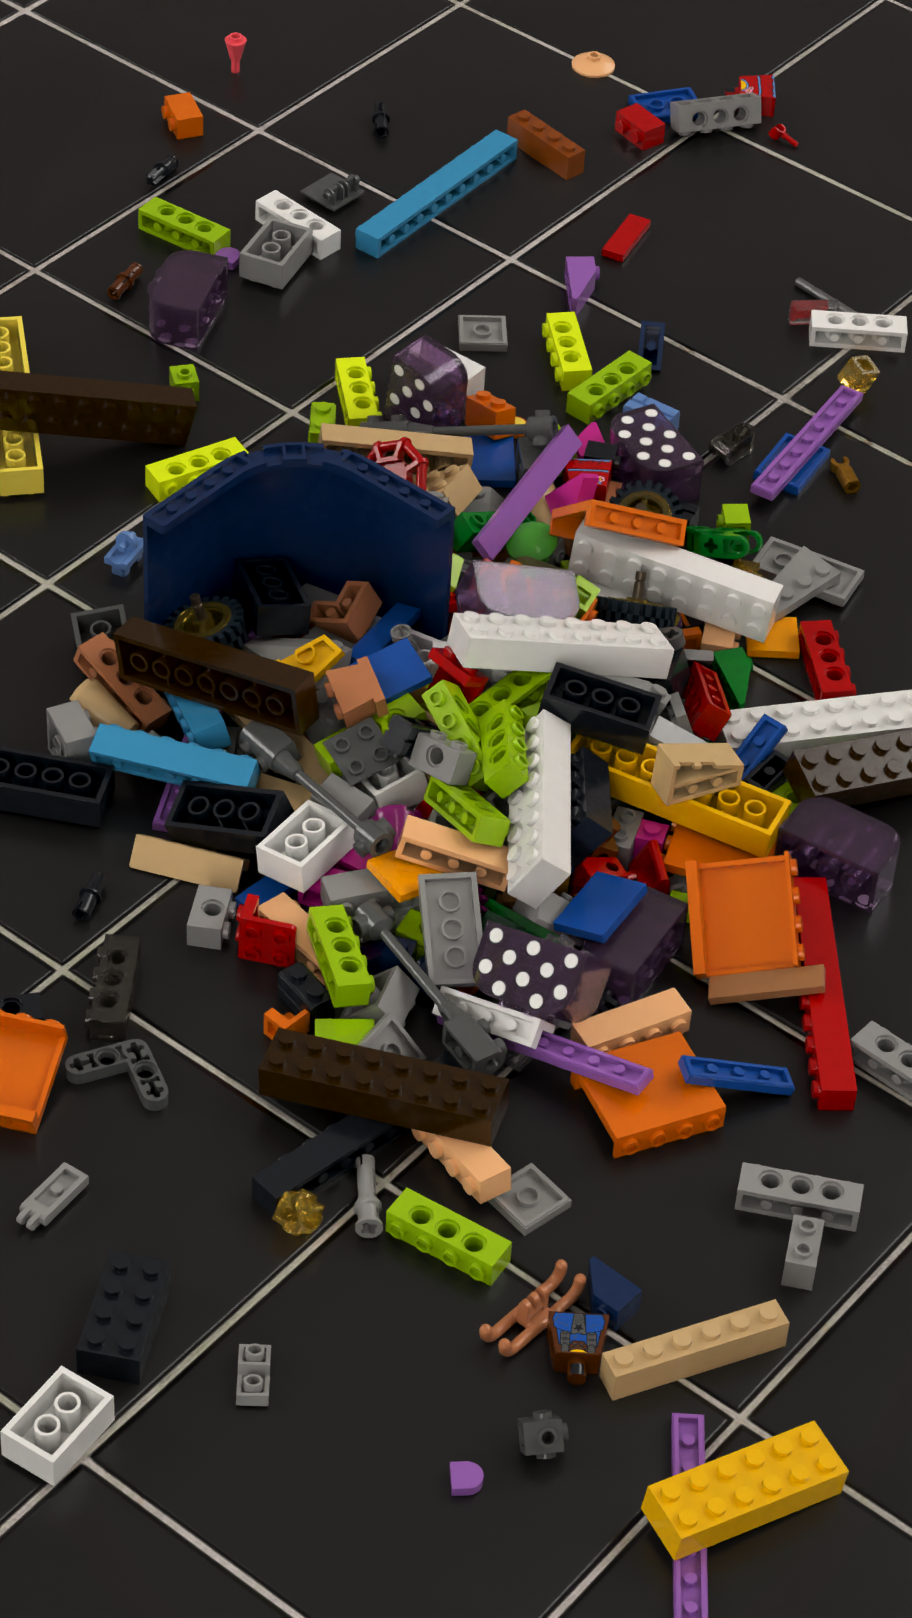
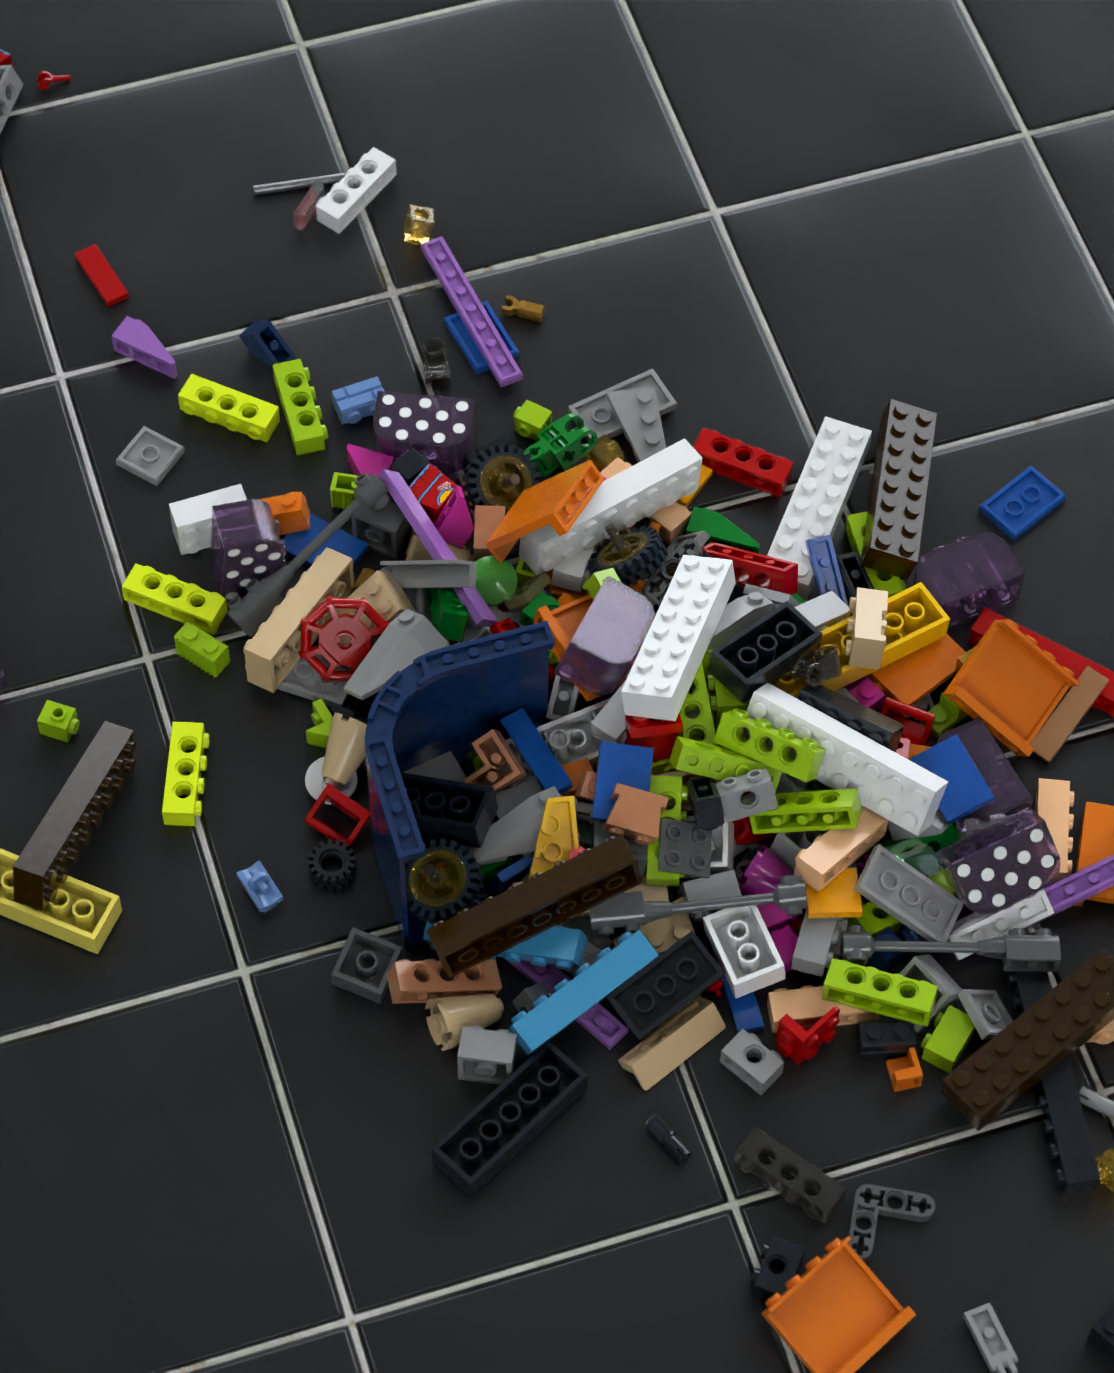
camera: 55 degrees left, 15 degrees up
(497, 495) = (433, 573): none -> light grey panel
(625, 754) = (817, 666): none -> clear smoke piece

